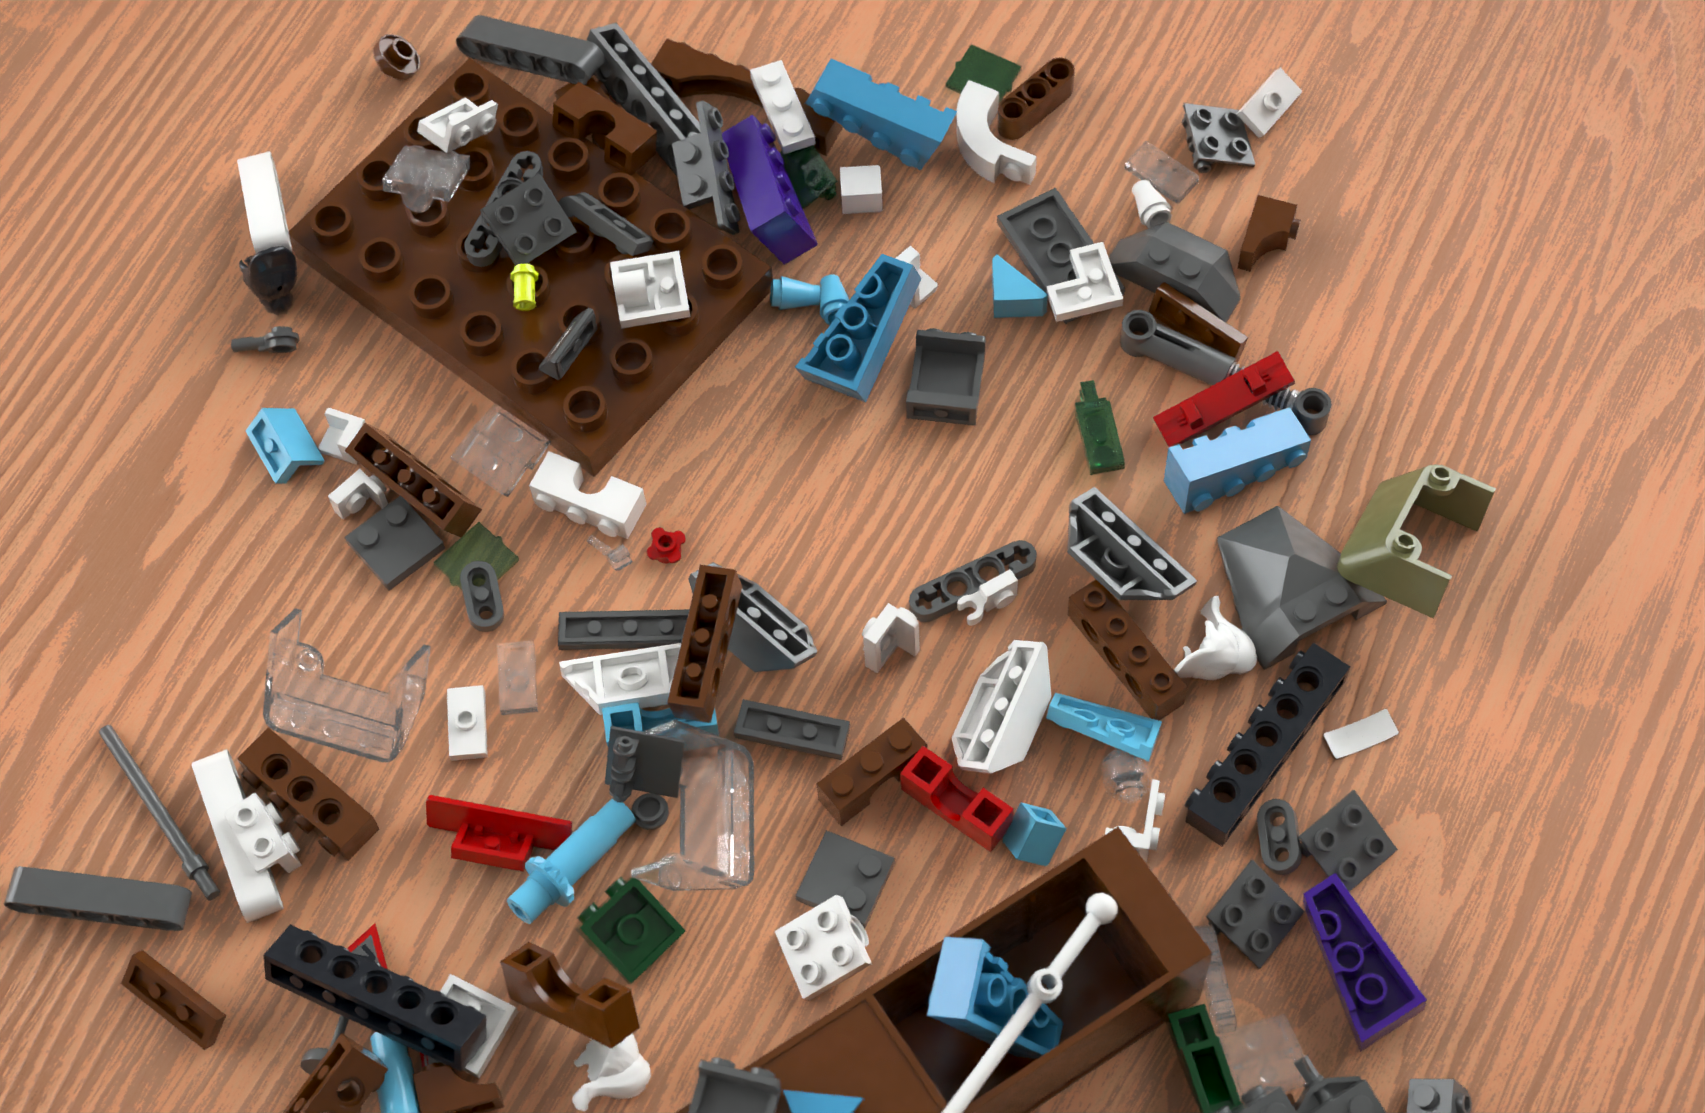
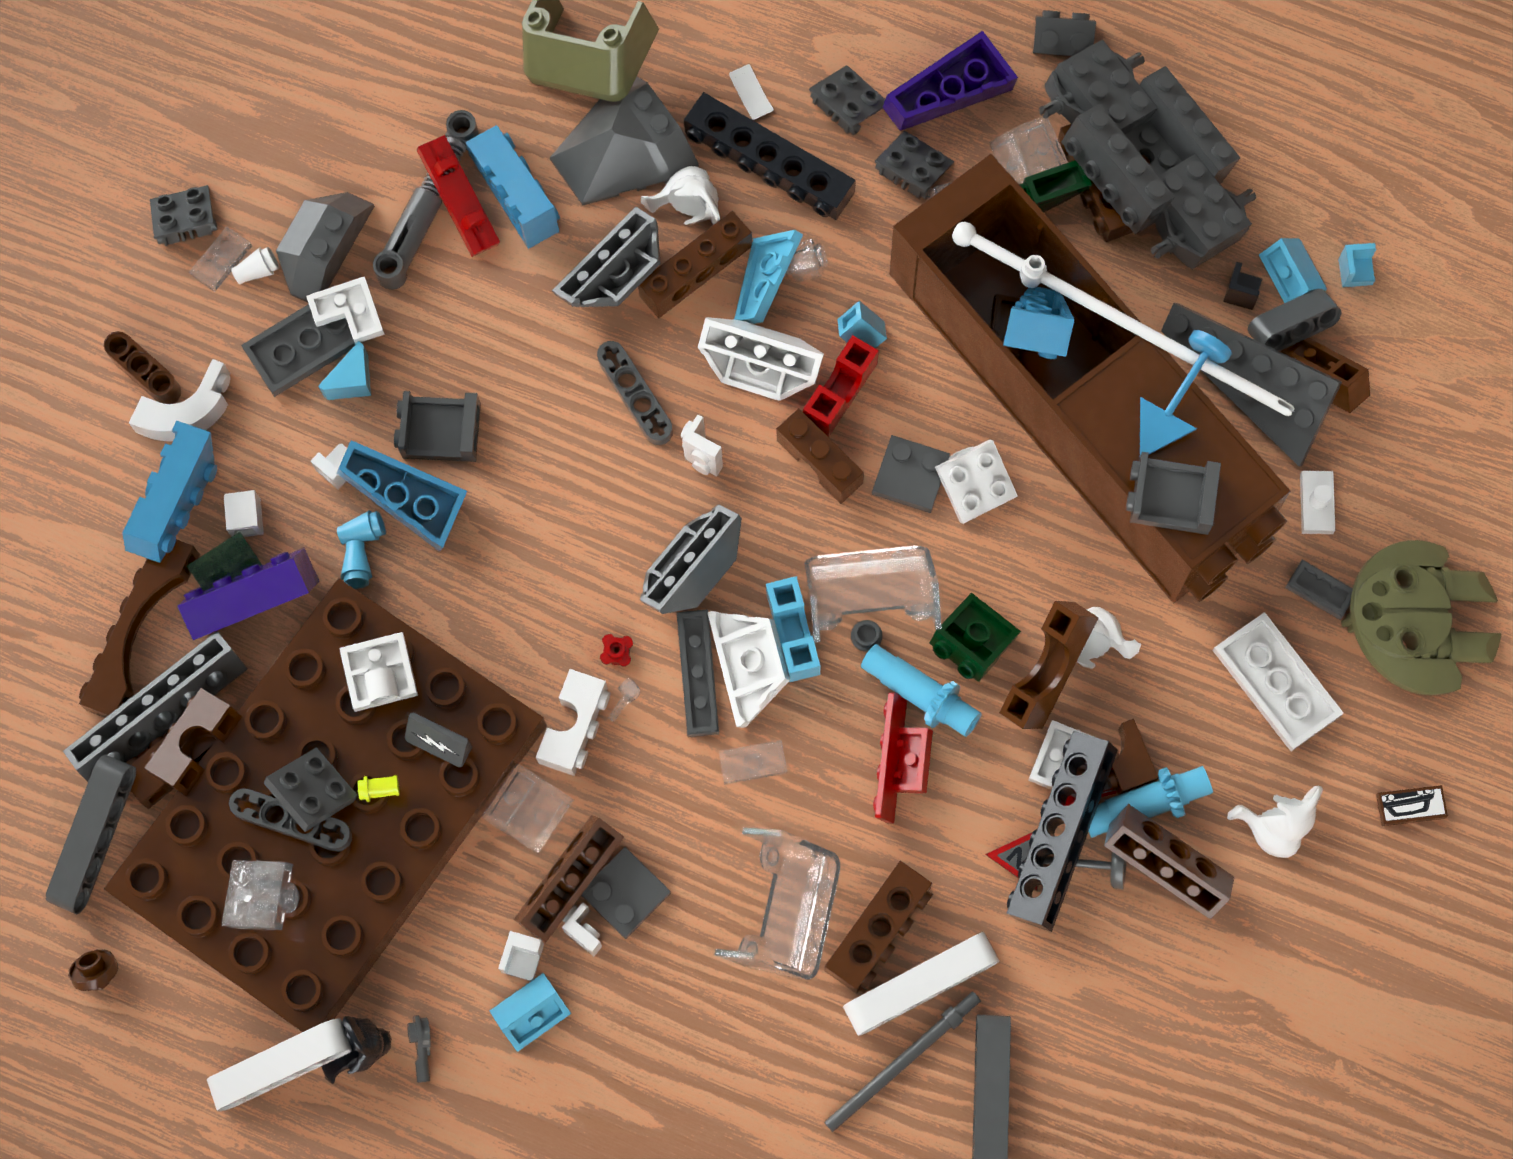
camera: 95 degrees left, 10 degrees up
(173, 999) = (1075, 1011): reddish brown plate -> none
(261, 836) = (925, 958): white bracket -> none
(458, 124) = (199, 875): white bracket -> none
(467, 723) = (797, 801): white plate -> none
(476, 545) = (639, 817): clear green piece -> none
(482, 598) = (676, 801): dark grey plate -> none
(607, 223) = (302, 724): dark grey plate -> none
(643, 763) = (837, 632): dark grey hinge -> none
(704, 169) = (241, 644): dark grey bracket -> none
(705, 643) = (734, 582): reddish brown brick -> none
(782, 107) = (161, 584): white plate -> none
(792, 729) = (784, 526): dark grey plate -> none
(985, 70) = (109, 420): clear green piece -> none
(994, 593) = (649, 370): white plate -> none
(1098, 431) = (486, 299): clear green hinge -> none
(1149, 839) = (856, 241): white bracket -> none
(1195, 321) = (378, 223): reddish brown plate -> none
(1268, 230) = (277, 170): reddish brown arch -> none
(1269, 102) = (146, 171): white plate -> none
(1279, 838) = (847, 146): dark grey plate -> none

